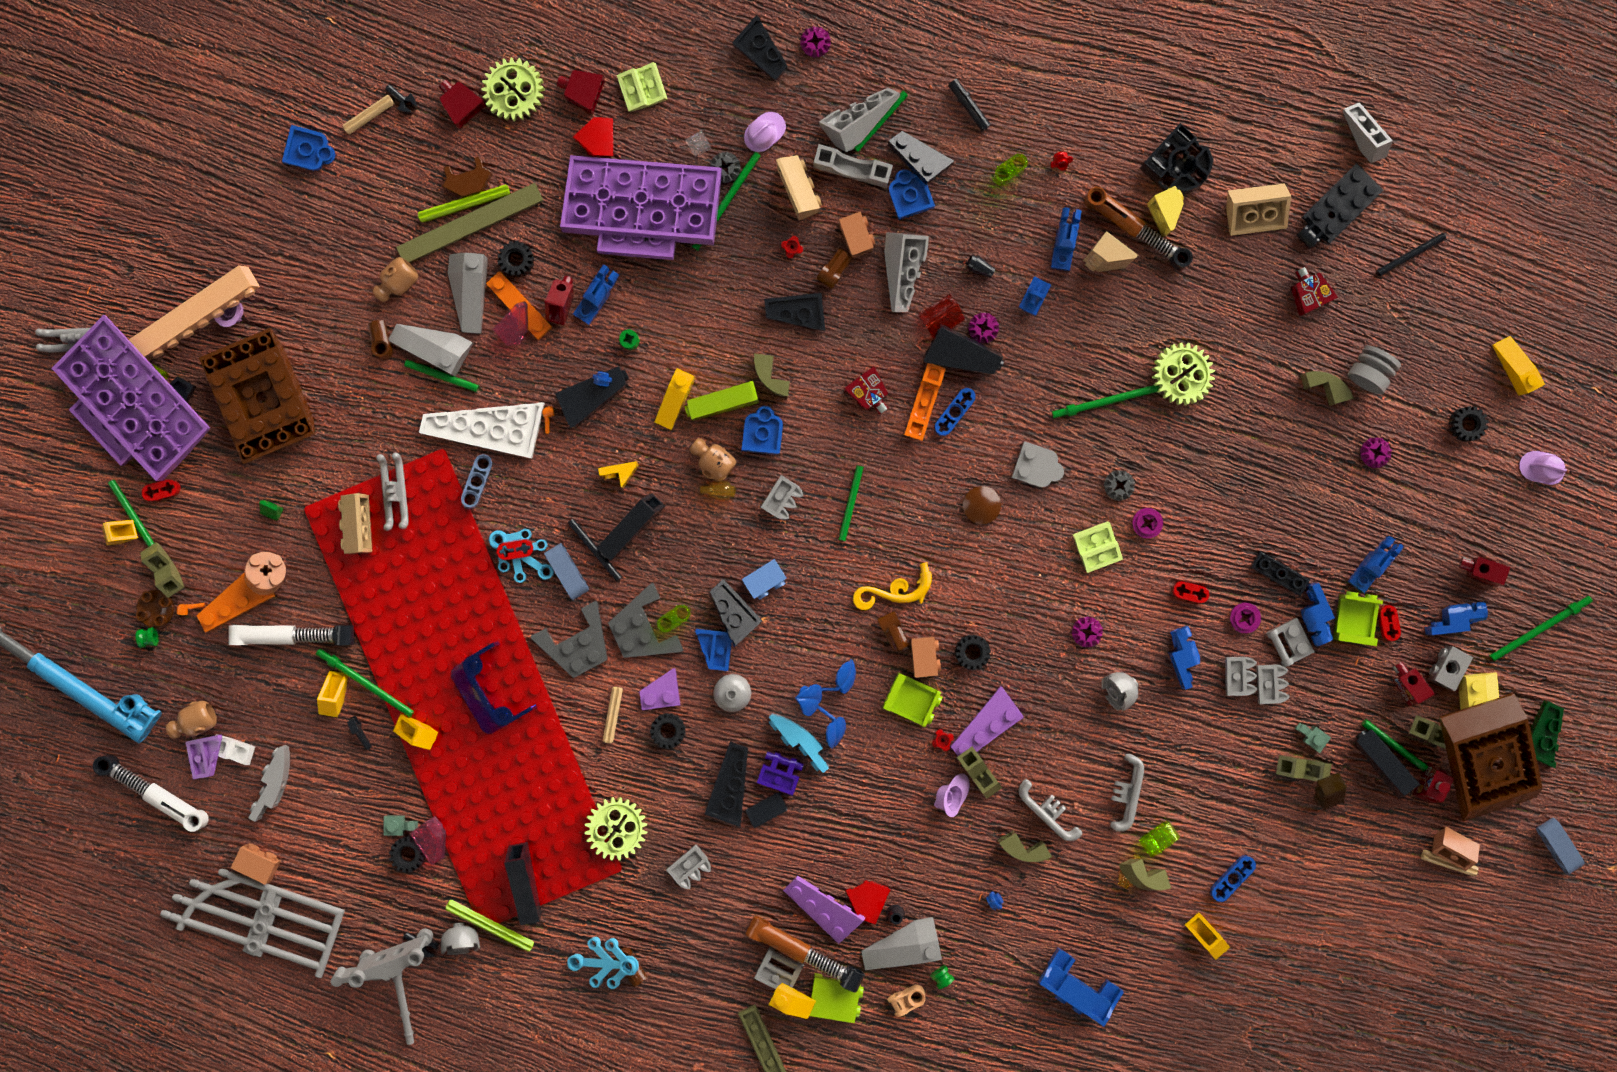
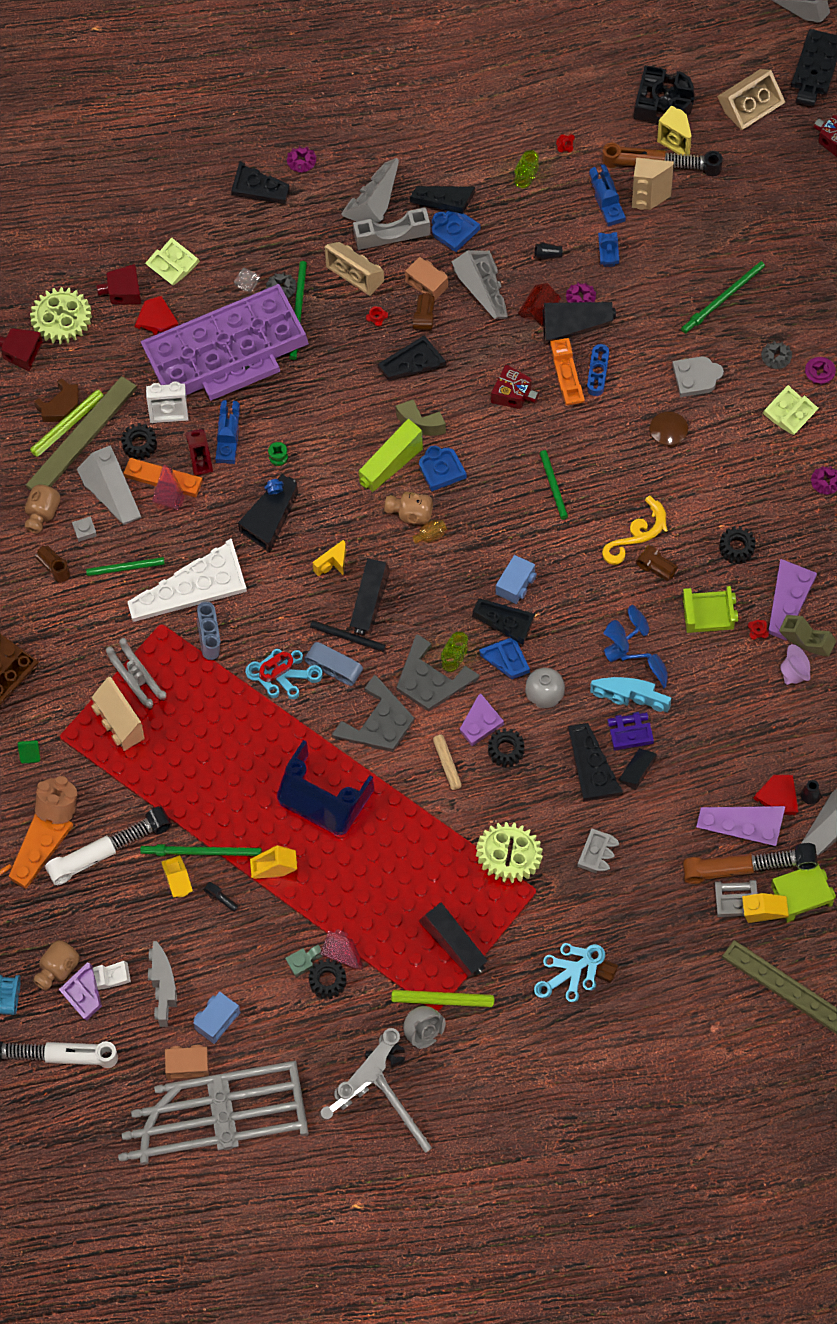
camera: 25 degrees left, 25 degrees down
(299, 838) = (216, 1017): none -> medium blue brick
(425, 318) = (84, 529): none -> light grey plate
(436, 347) = (109, 547): light grey wedge -> none
(548, 412) = (239, 546): orange hand -> none
(556, 236) = (167, 402): none -> white plate
(674, 398) = (346, 478): yellow slope -> none
(764, 131) = (298, 245): lavender piece -> none
(781, 497) = (489, 509): light grey plate -> none
(903, 95) = (395, 186): green bar -> none
(924, 656) = (697, 569): nougat brick -> none
(968, 103) = (462, 141): black pin -> none
(1173, 359) = (761, 237): yellowish green gear -> none

